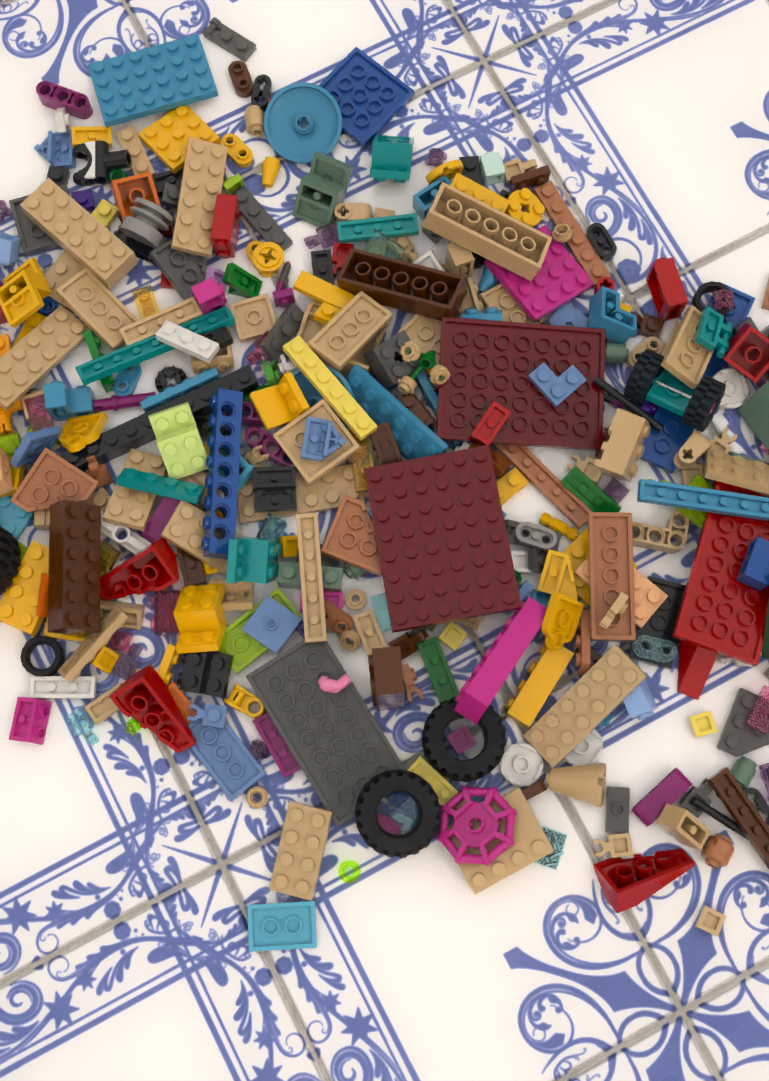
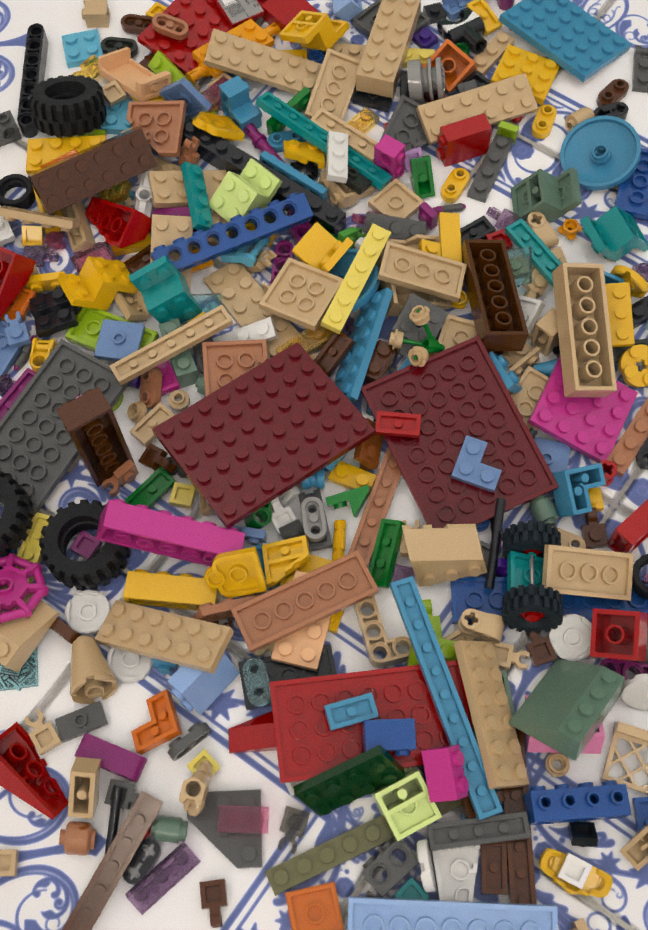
camera: 65 degrees right, 10 degrees down
(132, 278) = (372, 101): none -> black plate
(155, 369) = (303, 152): none -> yellow wing
(233, 720) = (23, 355): none -> dark grey piece
(265, 249) = (462, 180): yellow gear -> none
(270, 170) = (540, 152): yellow cone -> none
(274, 489) = (242, 284): black slope -> none
(320, 439) = (302, 291): medium blue slope -> none
(328, 506) = (259, 330): none -> white plate
(360, 185) = (570, 224): none -> light orange plate
(529, 492) = (356, 497): none -> green slope
(562, 233) = (636, 407): tan plate -> none
(617, 607) = (270, 614): tan plate -> none
(655, 741) = (163, 723): none -> orange plate
(674, 718) = (196, 734): none -> dark grey plate
(708, 332) = (616, 579): teal plate -> none
(727, 417) = (540, 649): none -> reddish brown plate
(728, 582) = (351, 711): none -> dark azure plate
(731, 733) = (196, 789): none -> tan animal

